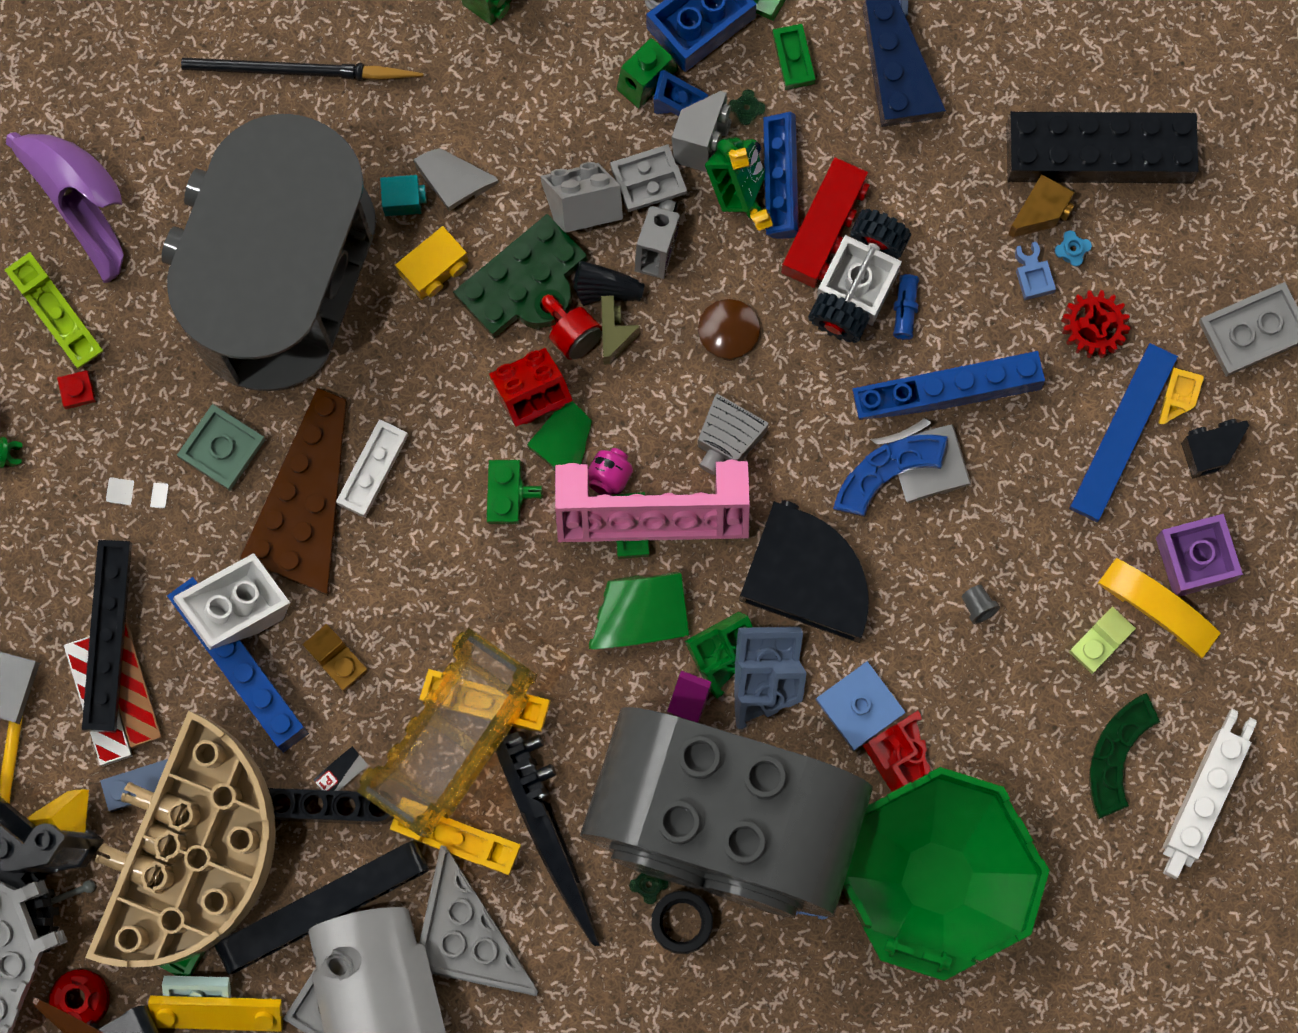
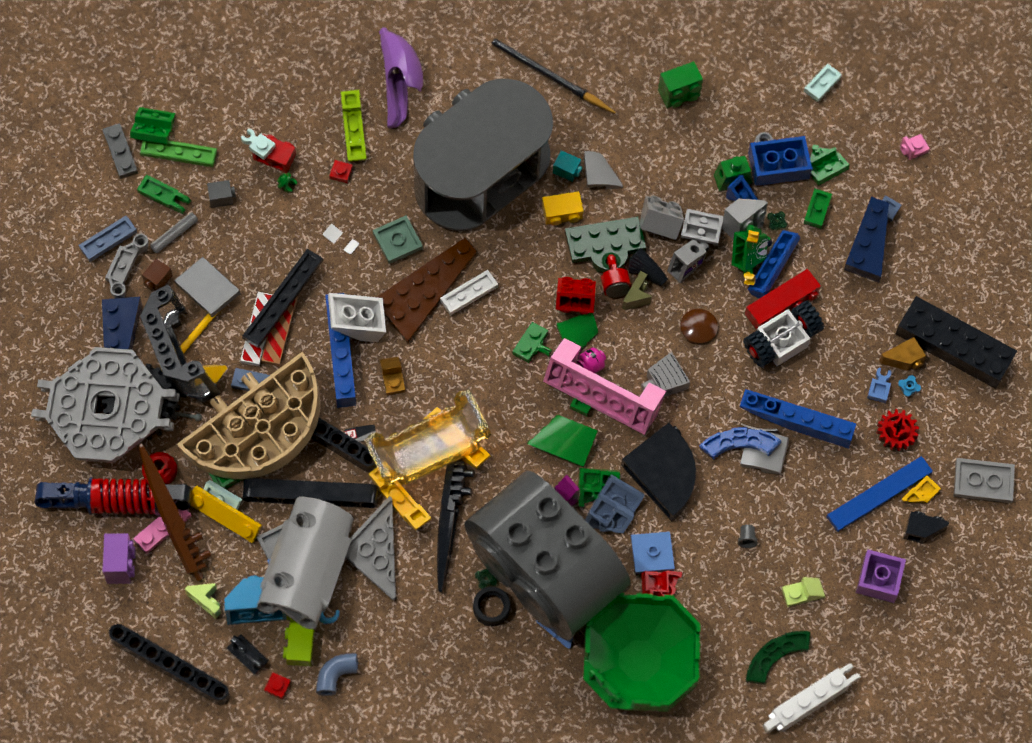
camera: 25 degrees right, 10 degrees down
(906, 307) = (800, 366): blue pin -> none
(1161, 606) = (845, 592): yellow slope -> none

